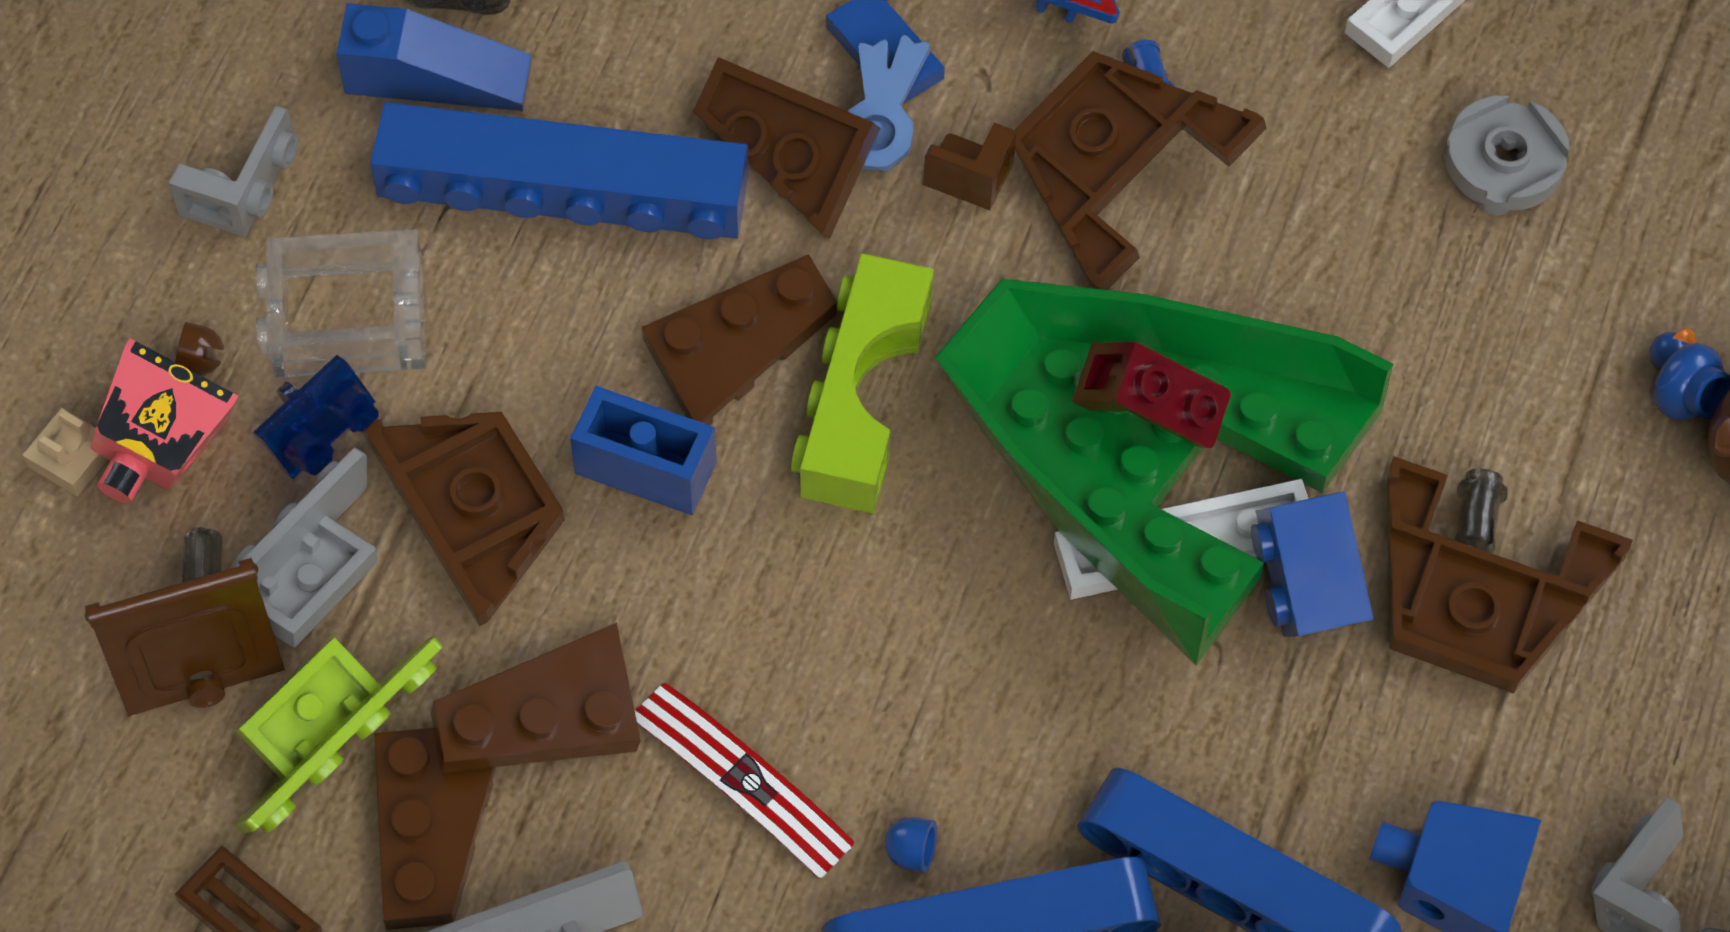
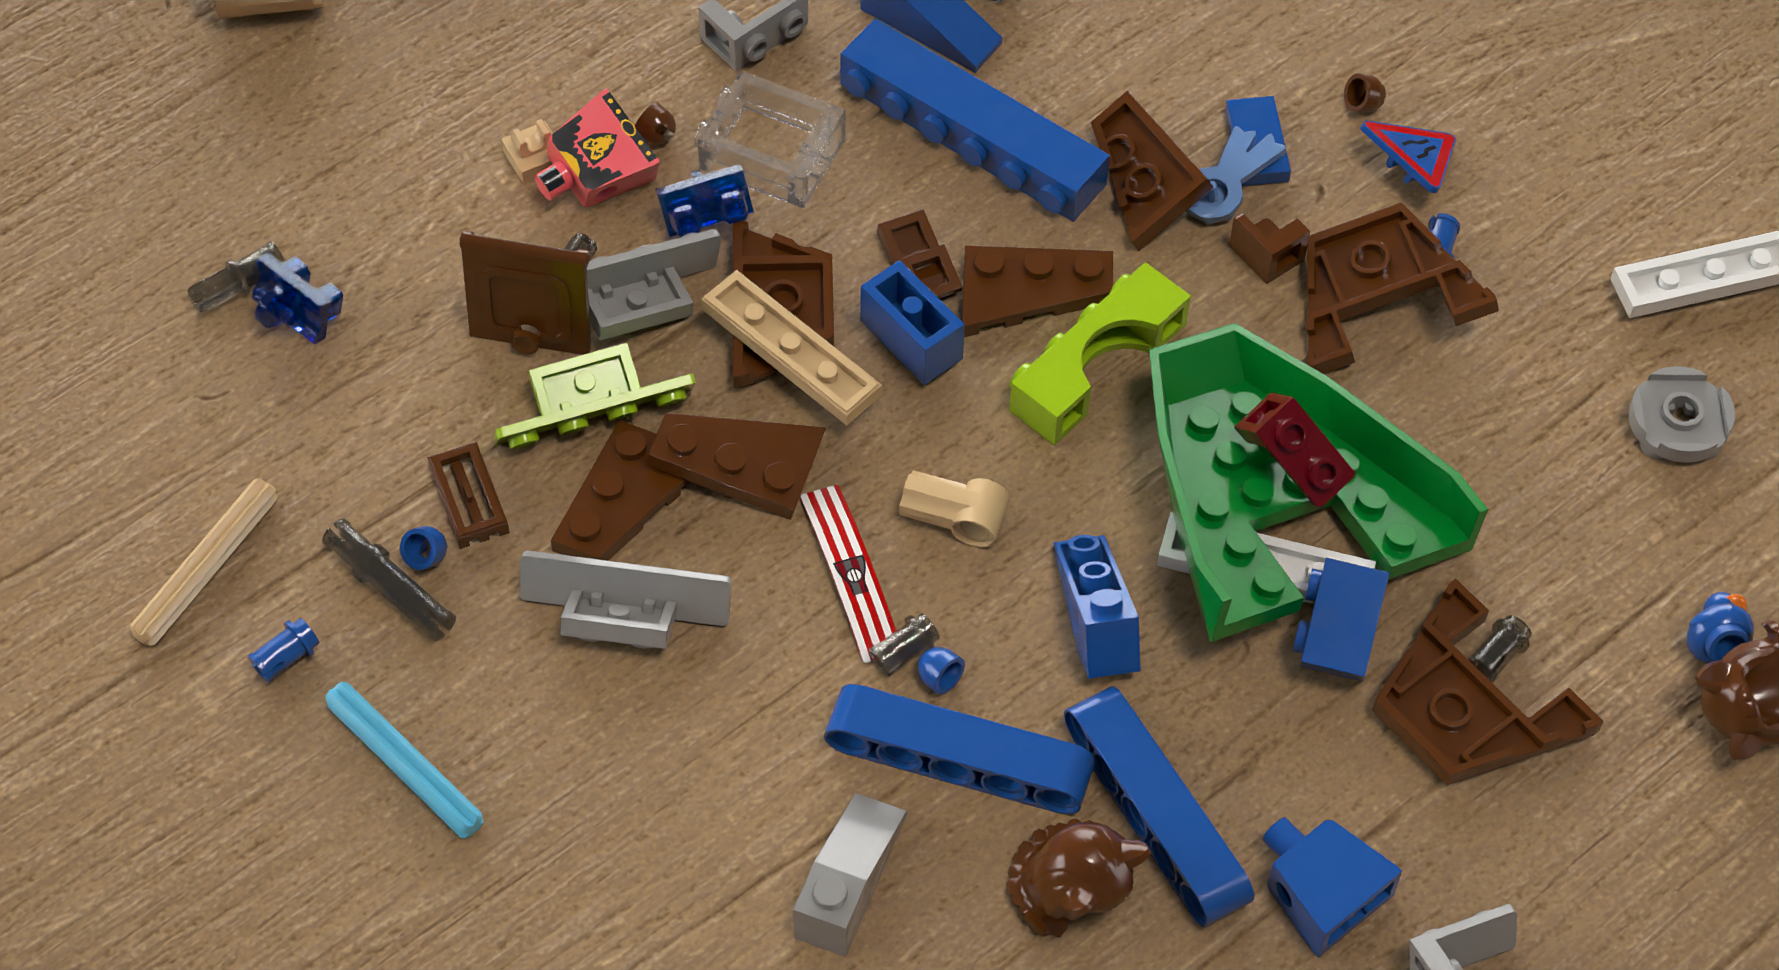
camera: 30 degrees right, 5 degrees down
(525, 547) = (791, 347): none -> tan tile
(585, 358) = (915, 245): none -> reddish brown slope
(833, 640) = (969, 510): none -> tan piece
(857, 835) = (904, 644): none -> clear smoke pin
(1042, 680) = (1098, 607): none -> blue slope

